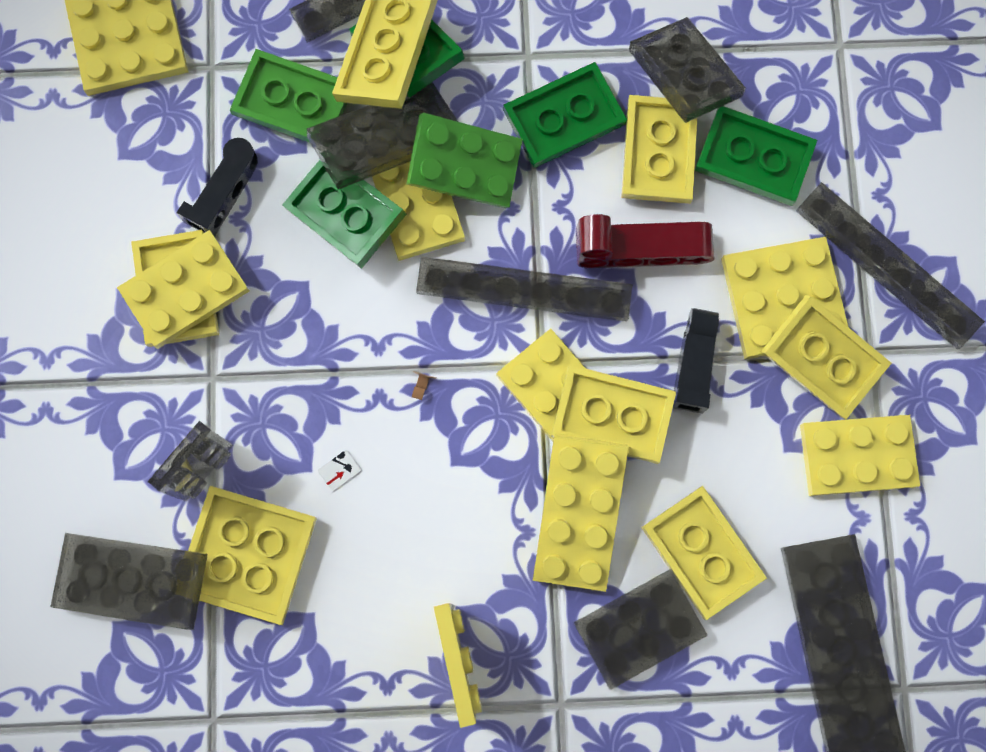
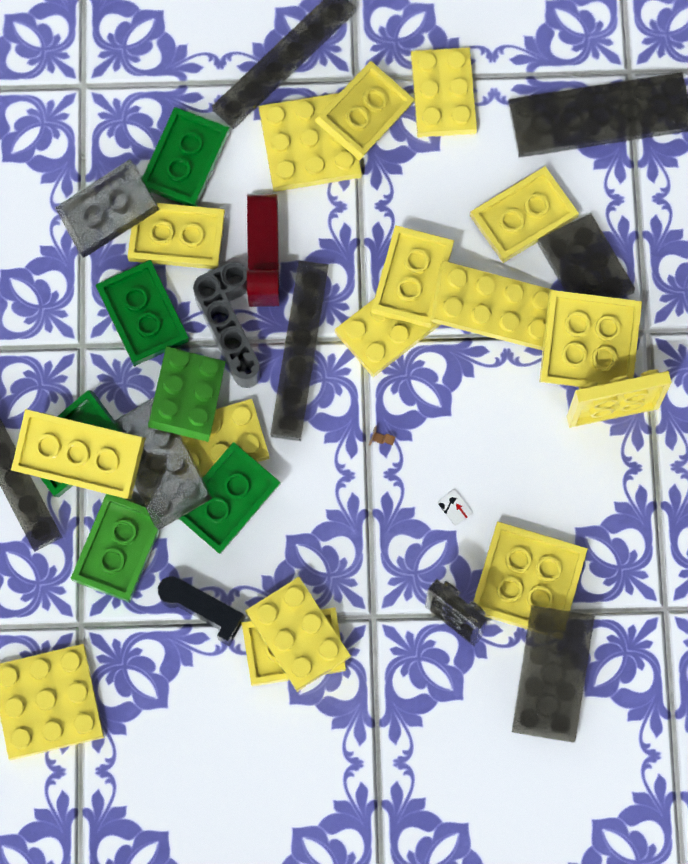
camera: 85 degrees left, 5 degrees down
(538, 632) = (589, 339): none -> light yellow plate
(550, 212) = (231, 328): none -> dark grey beam
(696, 361) = (363, 212): black leg -> none

